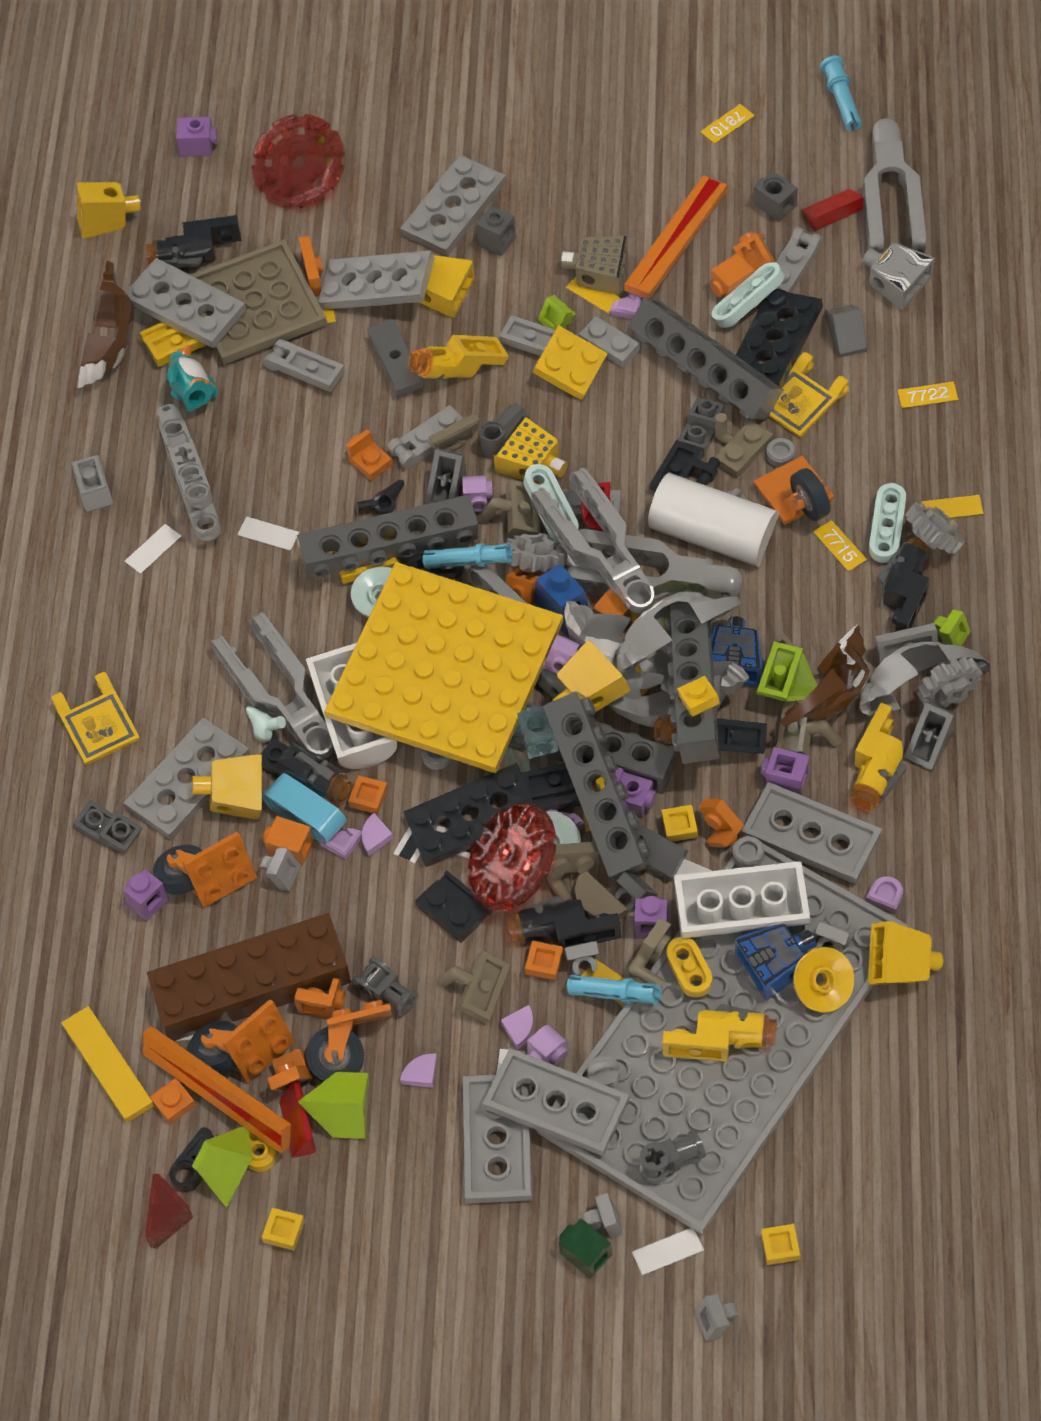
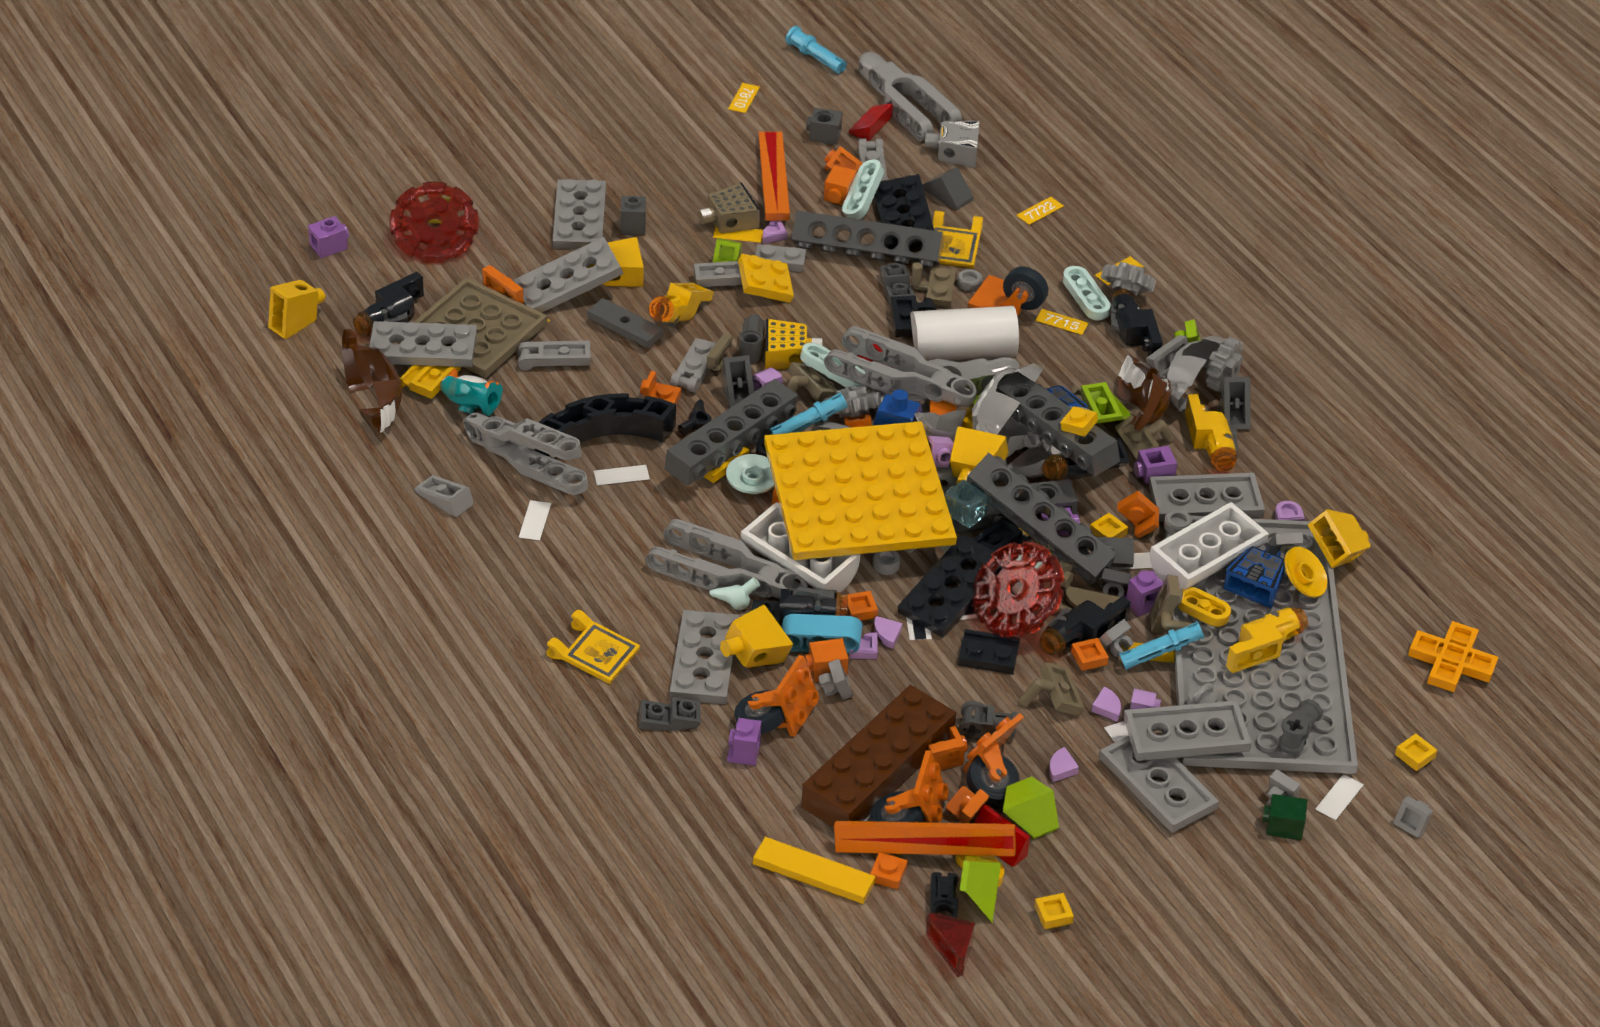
camera: 40 degrees left, 15 degrees down
(281, 461) = (614, 416): none -> black brick
(914, 1153) = (1453, 656): none -> light orange plate

